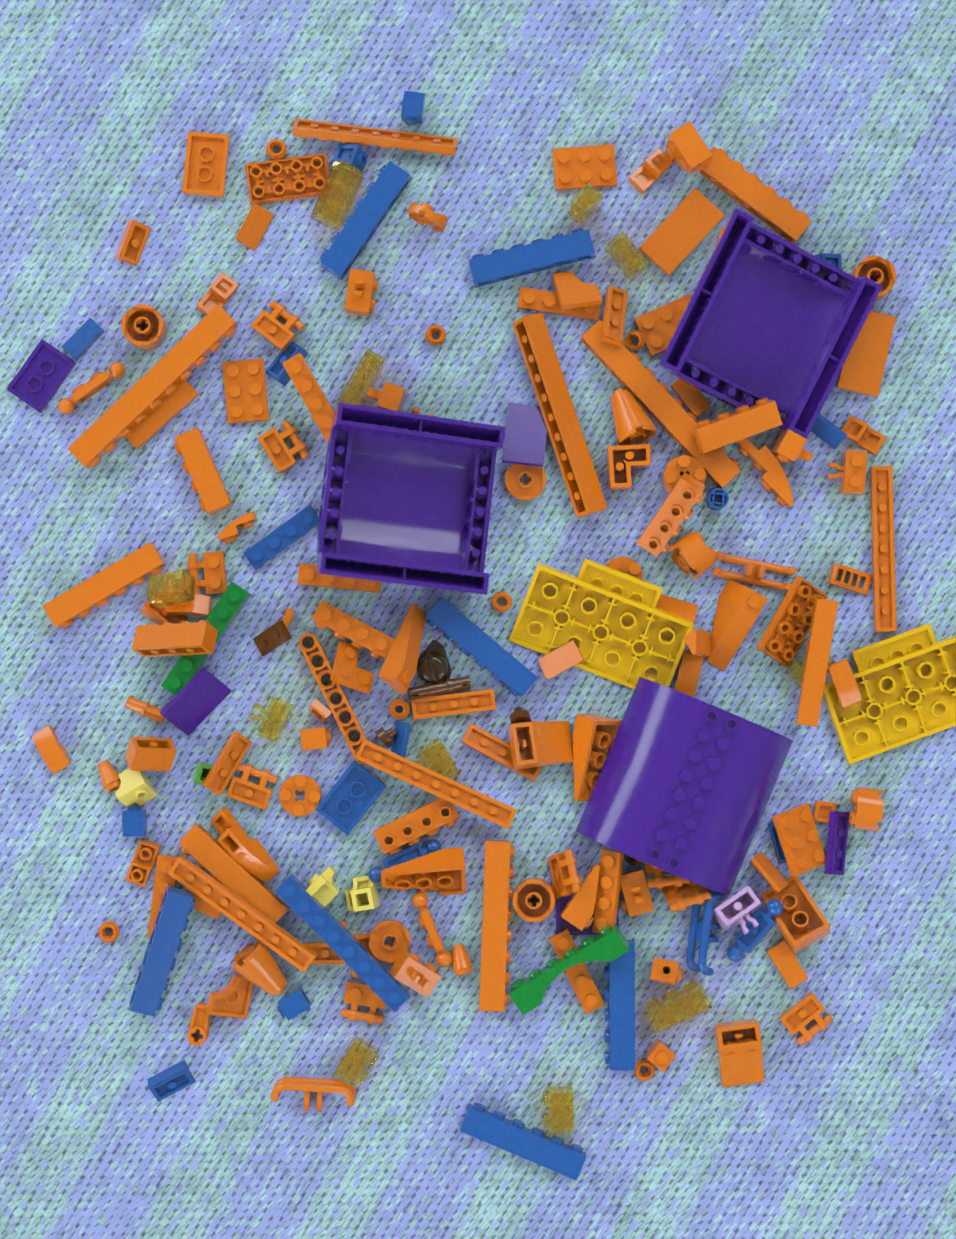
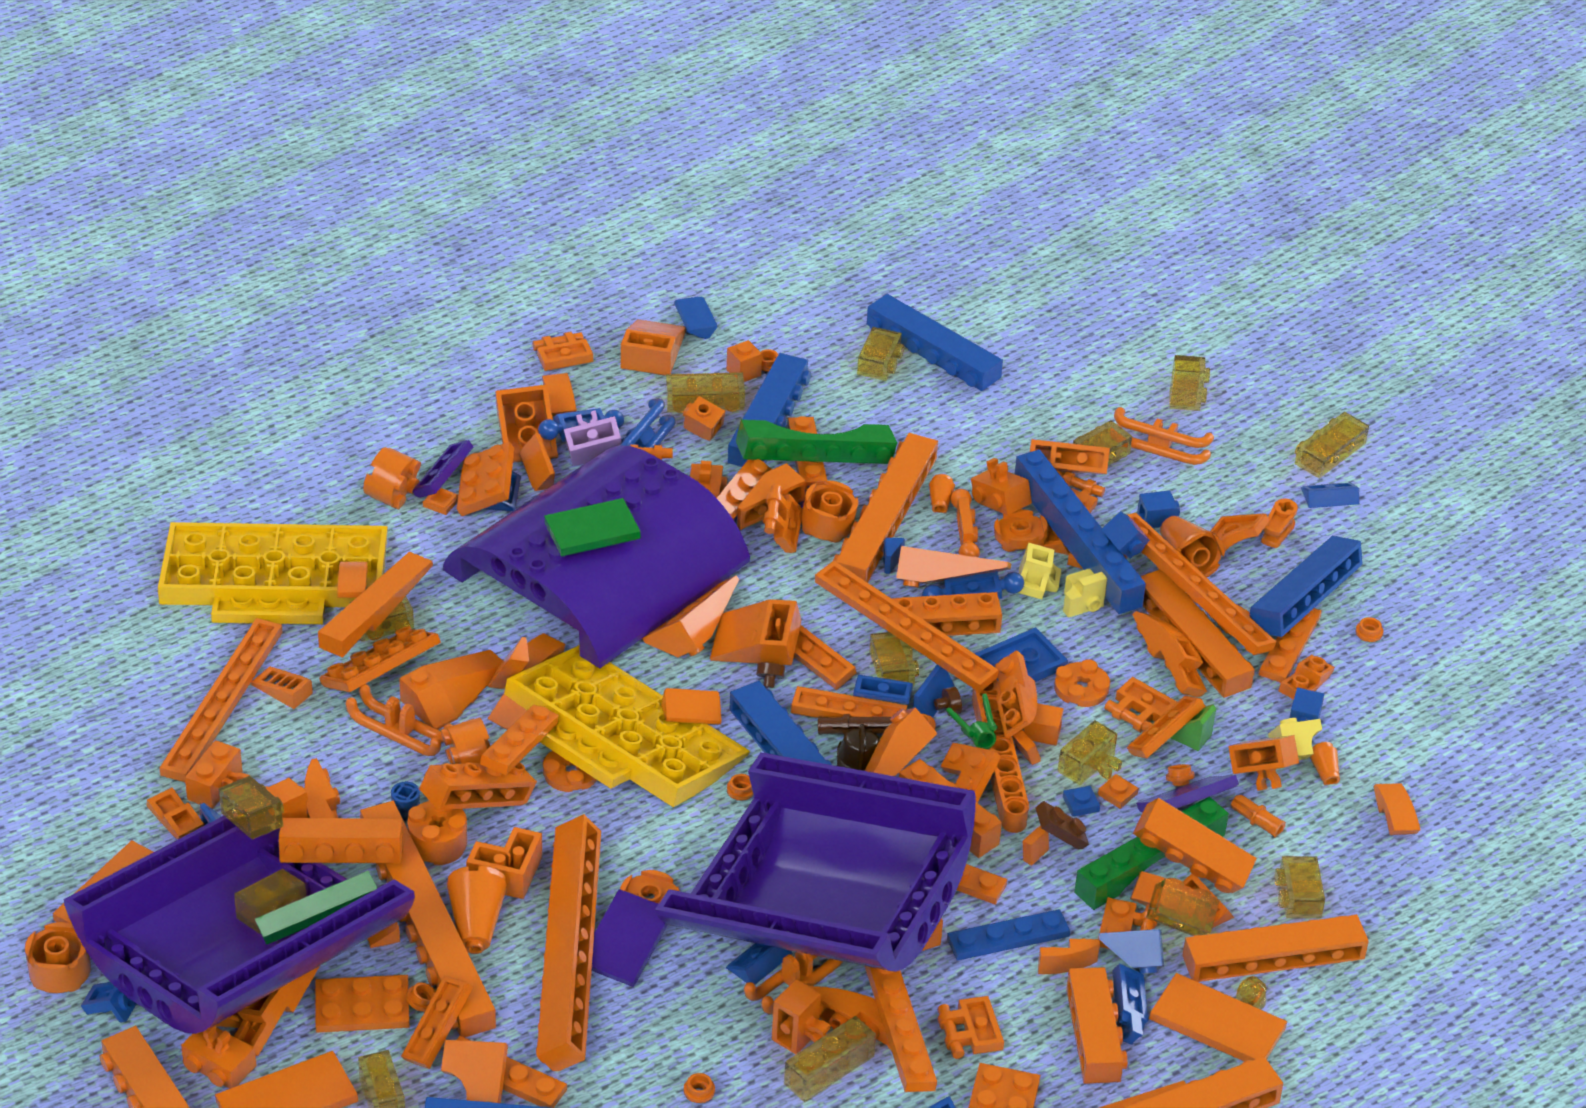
camera: 160 degrees left, 45 degrees down
(100, 647) = (1300, 887): none -> clear yellow brick
(111, 542) = (1252, 992): none -> clear yellow tile
(127, 510) = (1217, 1019): none -> orange tile
(181, 1135) = (1331, 444): none -> clear yellow brick
(187, 503) = (1131, 1002): none -> blue hinge
(195, 545) = (1137, 948): none -> slope
(207, 731) = (1180, 774): none -> orange plate
(246, 697) = (1118, 791): none -> orange plate
(269, 678) = (1081, 801): none -> blue plate
(301, 934) = (1125, 535): none -> blue brick
(306, 1158) = (1188, 382): none -> clear yellow brick
(333, 741) = (1018, 694): none -> orange slope
(350, 695) = (979, 732): none -> green plant
(377, 1031) = (1073, 457): none -> orange slope
(435, 727) = (883, 689): none -> blue slope
(475, 876) = (891, 553): none -> blue slope
(658, 561) = (519, 739): none -> orange plate
(686, 766) = (592, 527): none -> green tile
(719, 1100) = (696, 316): none -> blue slope
(723, 357) = (313, 908): none -> tile
(759, 366) = (267, 895): none -> clear yellow brick
(802, 411) = (251, 807): none -> clear yellow brick

